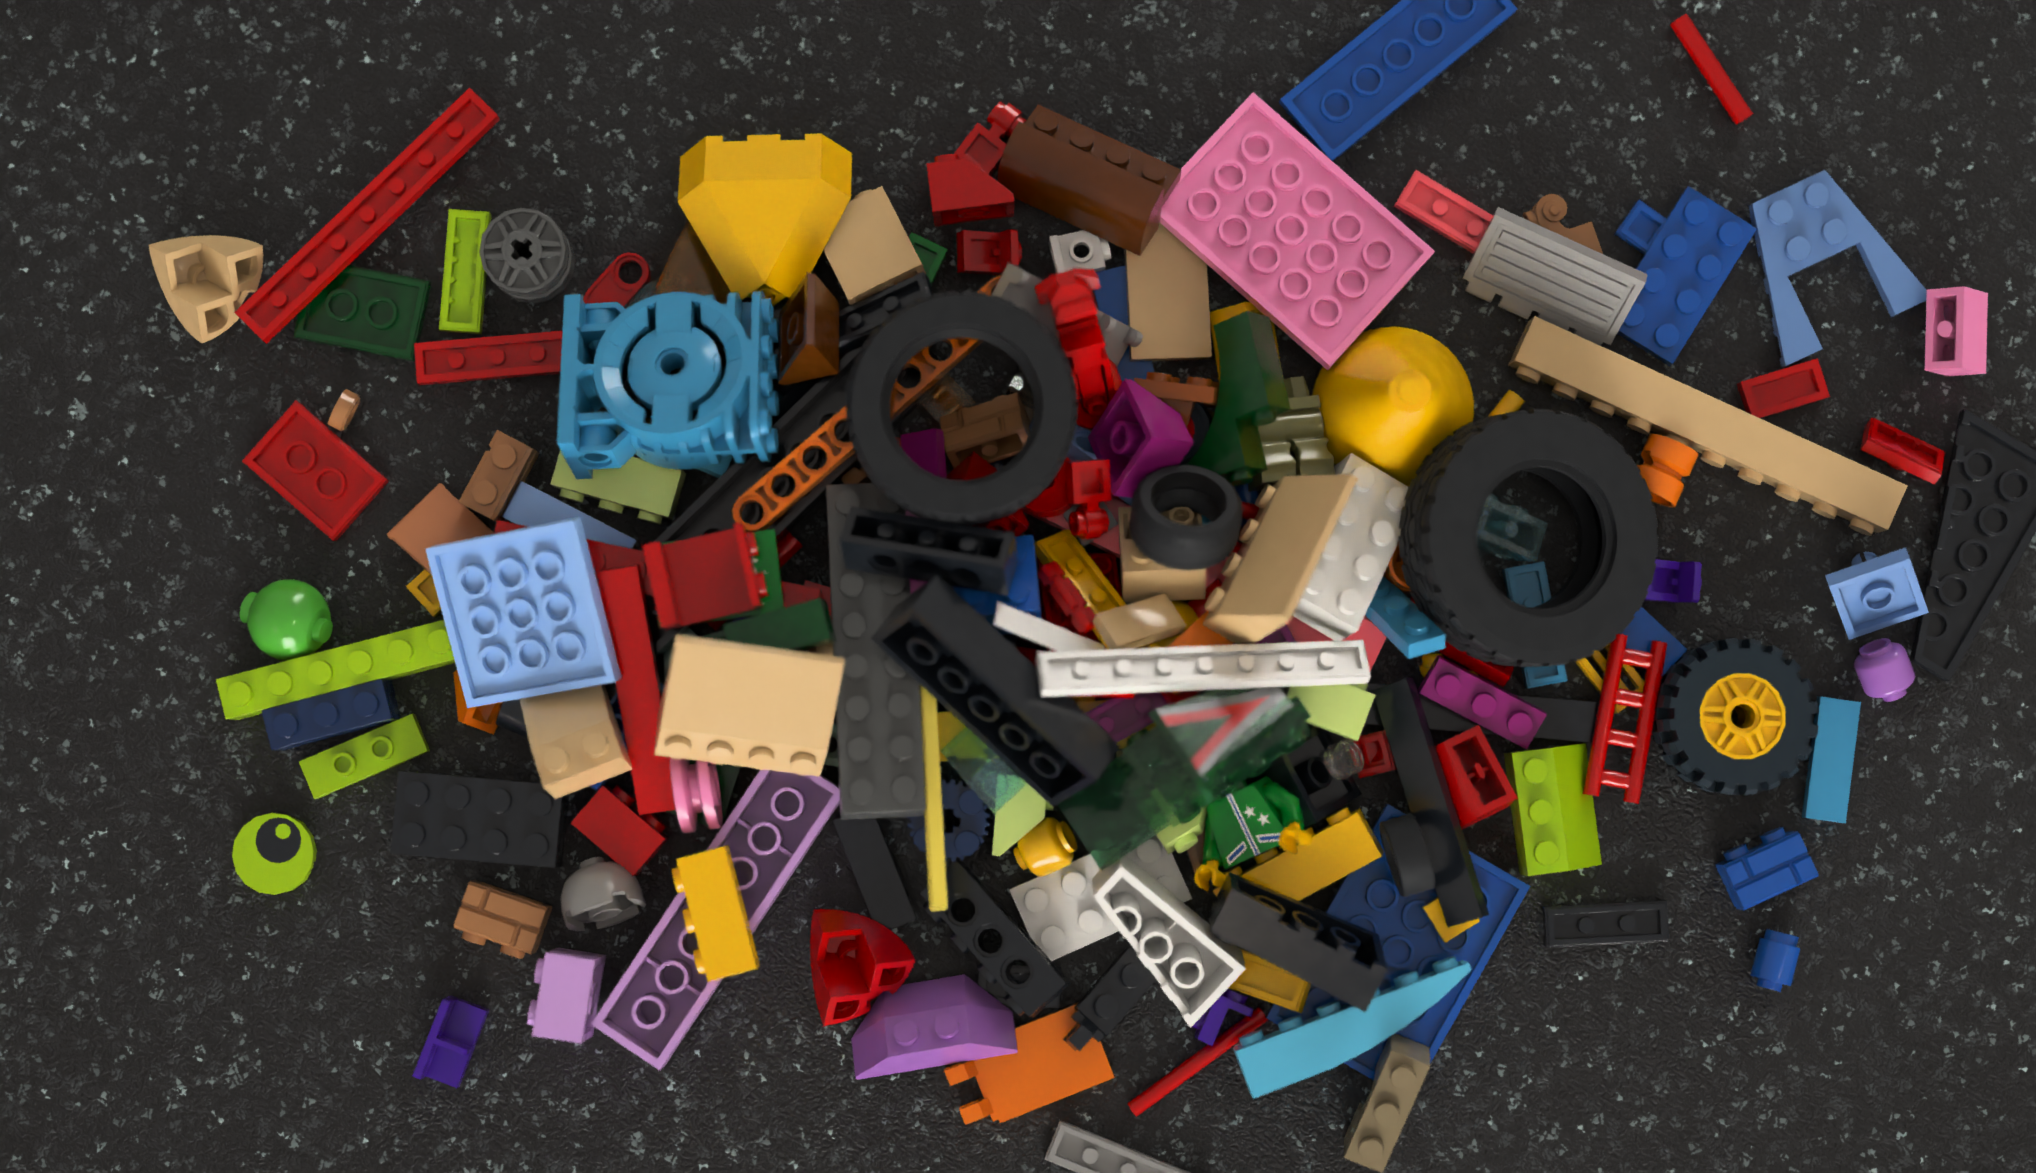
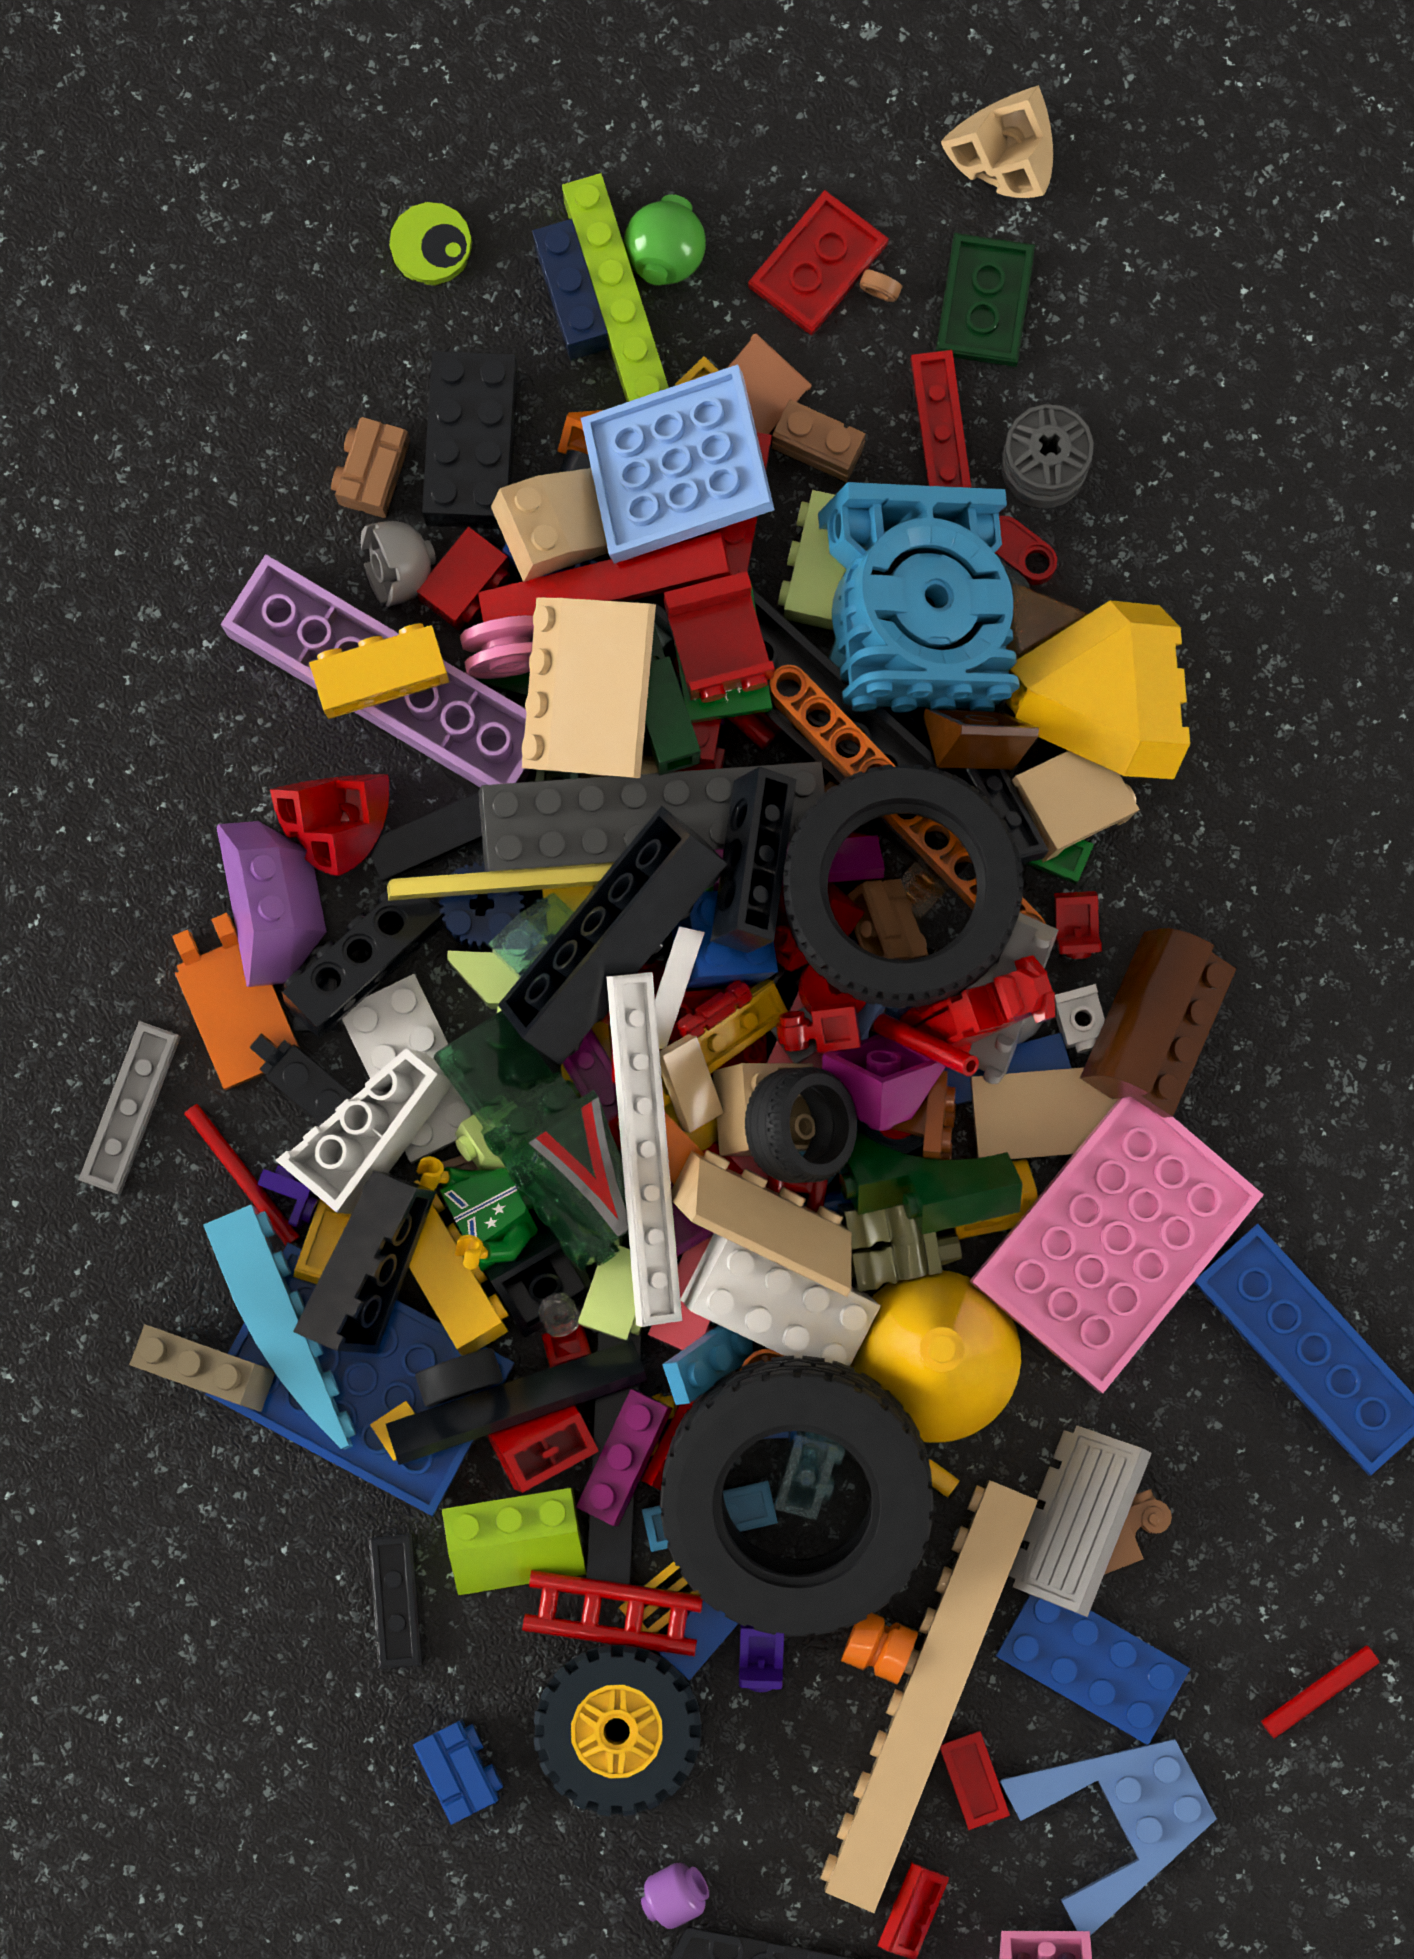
camera: 95 degrees right, 5 degrees down
(364, 756) = (531, 325): lime plate -> none
(367, 216) = (1080, 297): red plate -> none
(451, 1041) = (247, 423): dark purple panel -> none
(463, 273) = (1011, 395): lime plate -> none
(533, 507) = (787, 479): light blue slope -> none
(567, 995) = (295, 531): lavender brick -> none
(965, 192) = (1135, 890): red slope -> none
(985, 146) = (1189, 914): red plate -> none
(1046, 847) = (457, 1007): yellow head -> none
(1109, 396) = (926, 1044): none -> red piece
(1443, 211) = (1149, 1402): coral tile -> none
(1640, 226) = (1144, 1619): blue tile -> none
(1775, 960) = (361, 1783): blue brick -> none
(1831, 760) = (577, 1841): dark azure tile -> none
(1876, 592) = (756, 1880): medium blue tile -> none

